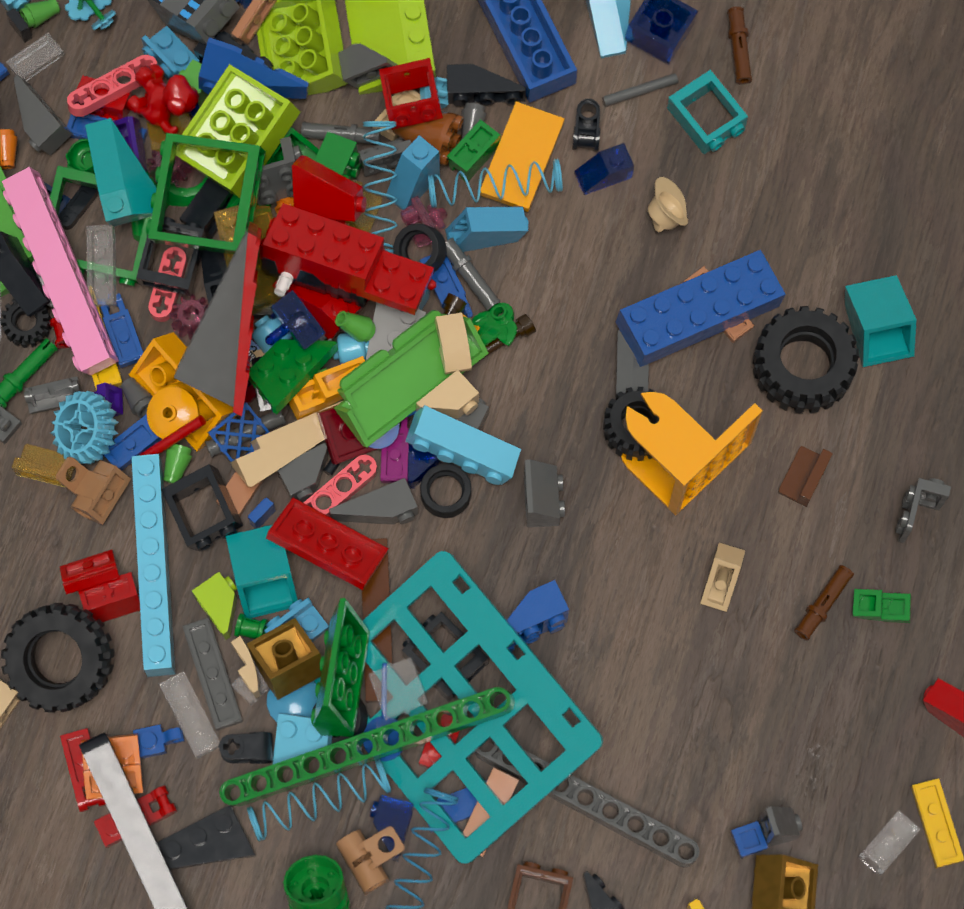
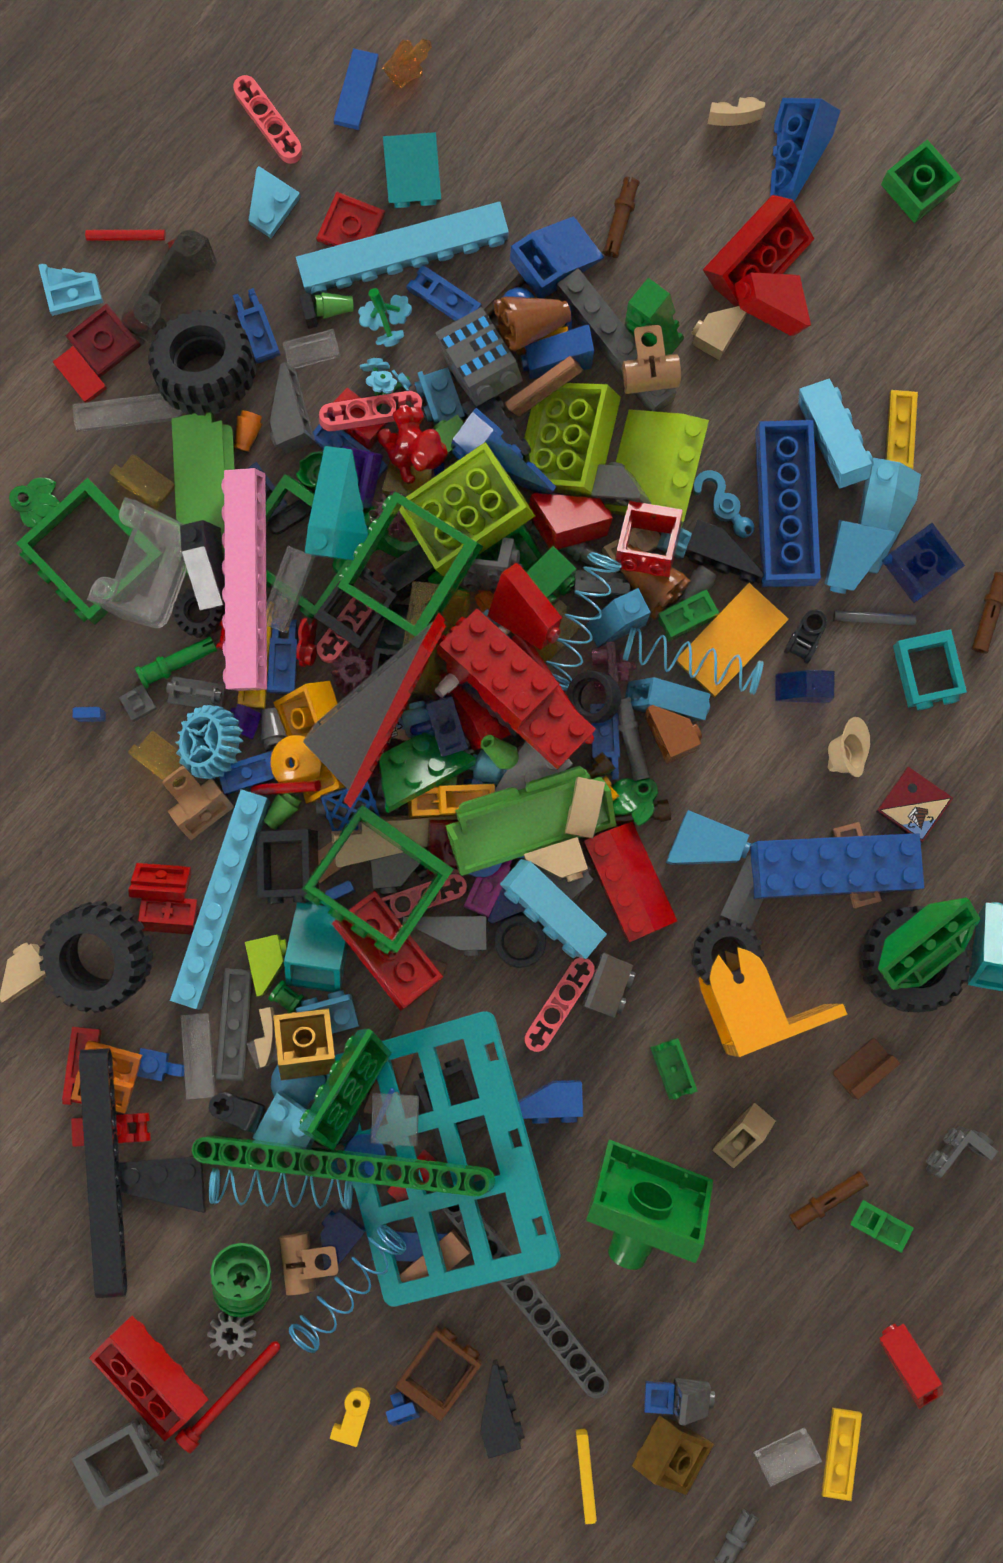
camera: 25 degrees right, 10 degrees up
(110, 55) = (382, 380): none -> medium azure plant
(140, 315) = (306, 649): none -> red plate
(303, 440) = (407, 846): none -> green window
(332, 108) = (569, 519): none -> red slope
(466, 46) = (725, 505): none -> dark azure piece
(504, 253) = (672, 733): none -> dark orange slope
(505, 532) = (562, 1006): none -> coral beam
(521, 400) = (629, 881): none -> red slope
(577, 336) = (706, 842): none -> dark azure slope
(597, 40) = (854, 553): none -> dark azure slope
(633, 544) = (673, 1068): none -> green hinge
(662, 666) = (649, 1206): none -> green piece
(745, 230) = (914, 804): none -> tile
(809, 330) = (927, 943): none -> green wedge

